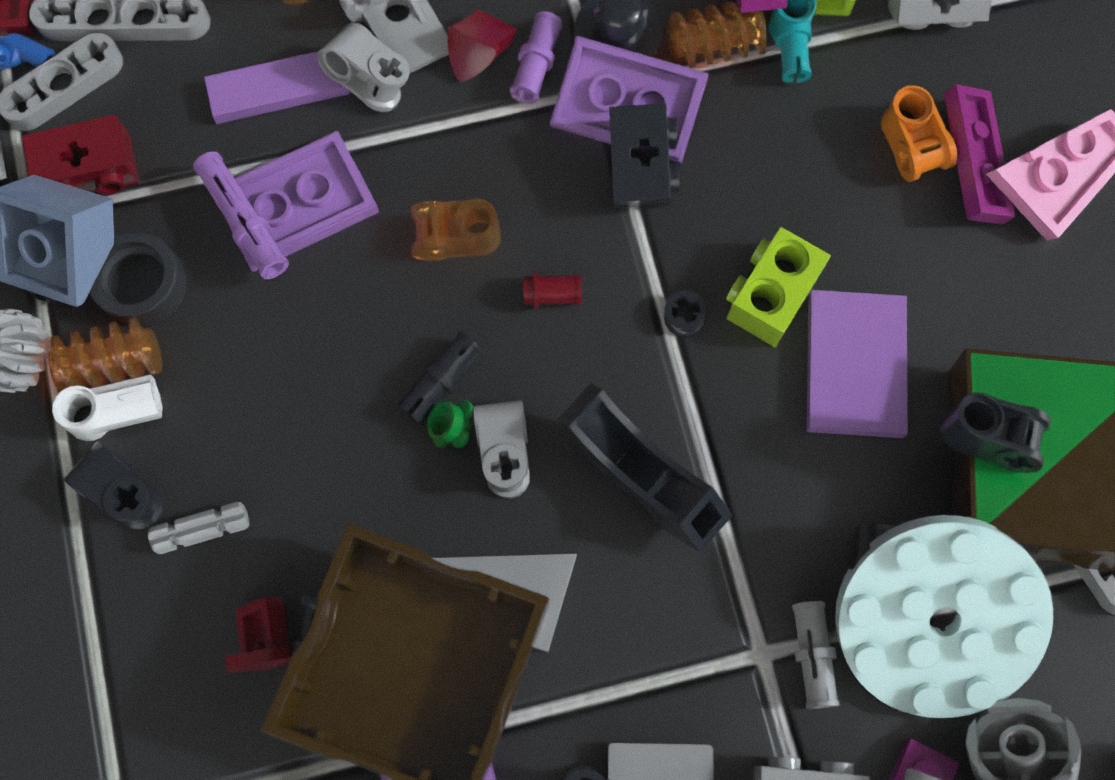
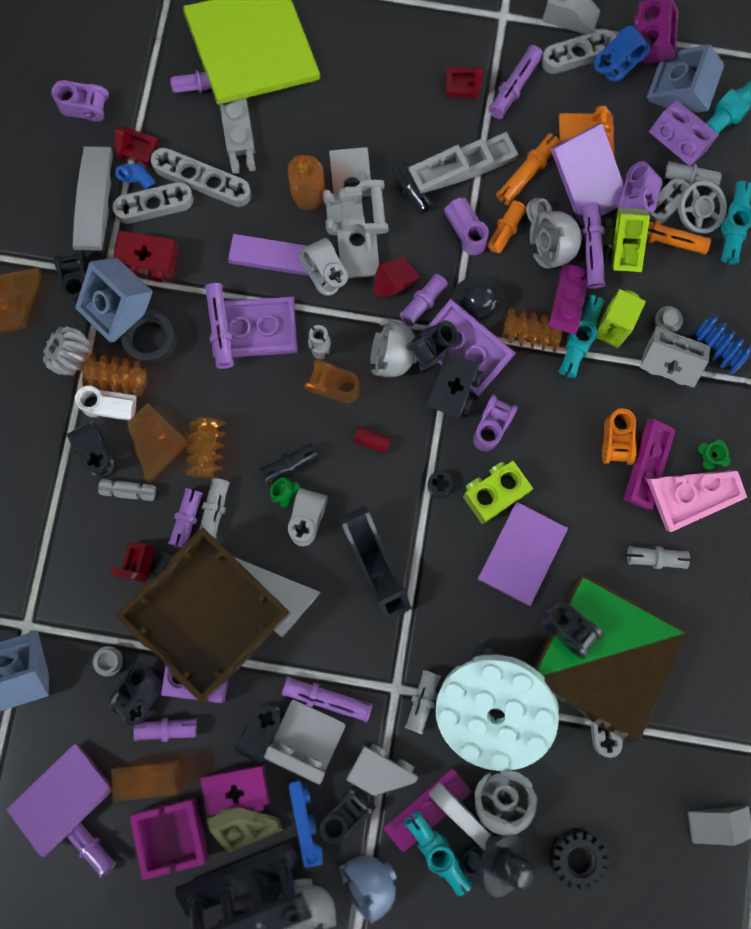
camera: 20 degrees right, 5 degrees up
(212, 432) = (154, 441): none -> clear orange wing
(294, 409) = (204, 448): none -> clear orange piece
(311, 531) = (185, 518): none -> medium lavender pin
(349, 488) = (214, 506): none -> light grey pin
(407, 173) = (319, 341): none -> light grey pin
(525, 141) = (389, 349): none -> light grey cylinder
(583, 103) = (433, 343): none -> black piece
(664, 718) = (327, 699): none -> medium lavender pin
(723, 185) = (496, 420): none -> medium lavender piece
(1057, 283) = (658, 557): none -> light grey pin
(1068, 95) = (718, 447): none -> green plate

